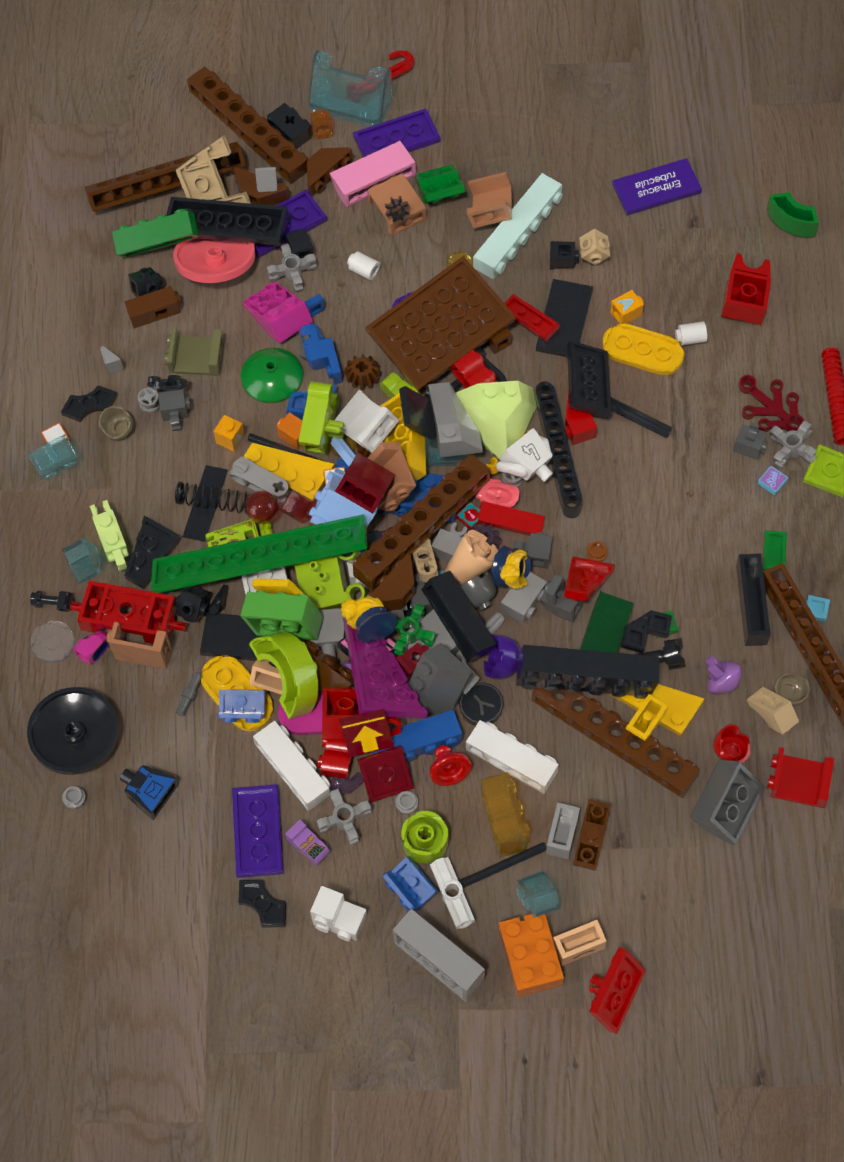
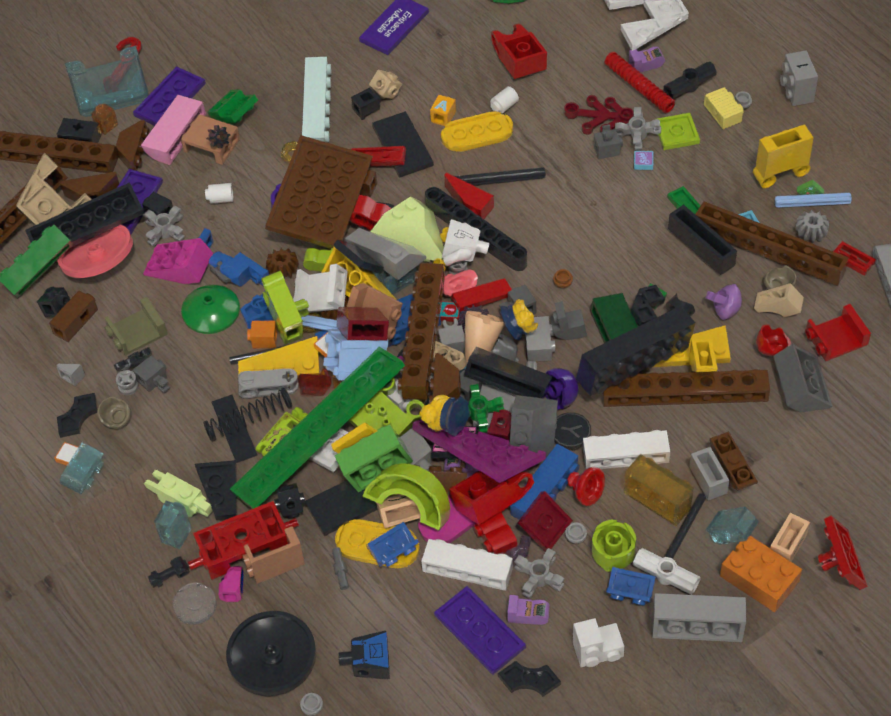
camera: 35 degrees left, 10 degrees down
(219, 601) = (306, 487): black bar -> none
(229, 433) = (213, 365): light orange brick -> none
(262, 507) = (288, 397): clear red hair -> none
(266, 179) = (95, 174): light grey slope -> none
(366, 732) = (512, 495): dark red tile -> none
(490, 200) = (281, 95): nougat panel -> none
(586, 577) = (574, 297): red wing -> none
(588, 379) = (459, 168): black tile -> none

